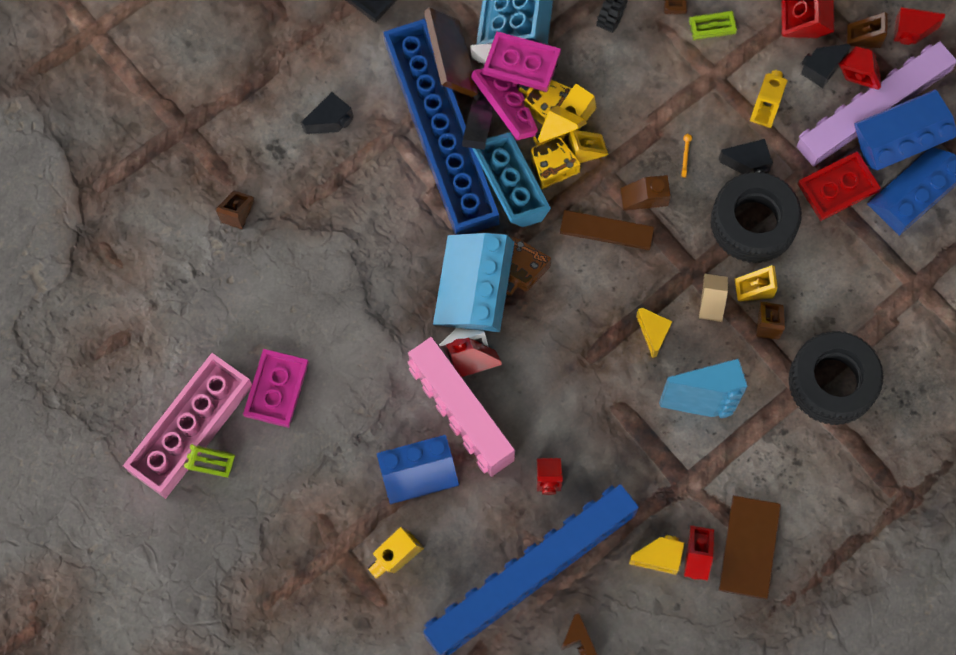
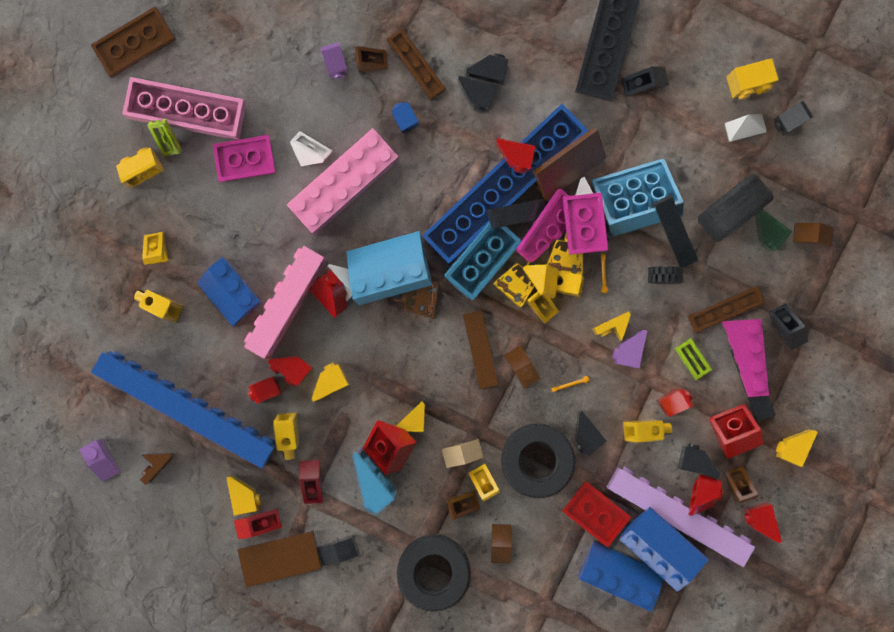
camera: 65 degrees right, 15 degrees up
(82, 455) = (133, 42): none -> reddish brown tile
(219, 242) = (334, 61): none -> medium lavender slope
(228, 505) = (139, 168): none -> yellow slope
(264, 166) = (416, 64): none -> reddish brown tile
(303, 315) = (309, 150): none -> white slope
(310, 92) = (489, 69): none -> black slope
(316, 199) = (404, 117): none -> blue brick
(329, 531) = (154, 249): none -> yellow slope
(355, 292) = (343, 181): none -> bright pink brick
(416, 94) = (517, 155): none -> red slope
(537, 435) = (293, 369): none -> red slope
(564, 67) = (604, 289): none -> light orange hinge
(571, 401) = (329, 381): none -> yellow slope
(601, 469) = (286, 427): none -> yellow torso
(643, 81) = (618, 323): none -> yellow slope
(669, 358) = (389, 447): none -> red slope
(676, 470) = (311, 481): none -> dark red slope
(677, 78) = (631, 350): none -> medium lavender slope
(751, 55) = (675, 401): none -> red slope
(768, 474) = (338, 550): none -> black slope
(832, 297) = (501, 543): none -> reddish brown slope

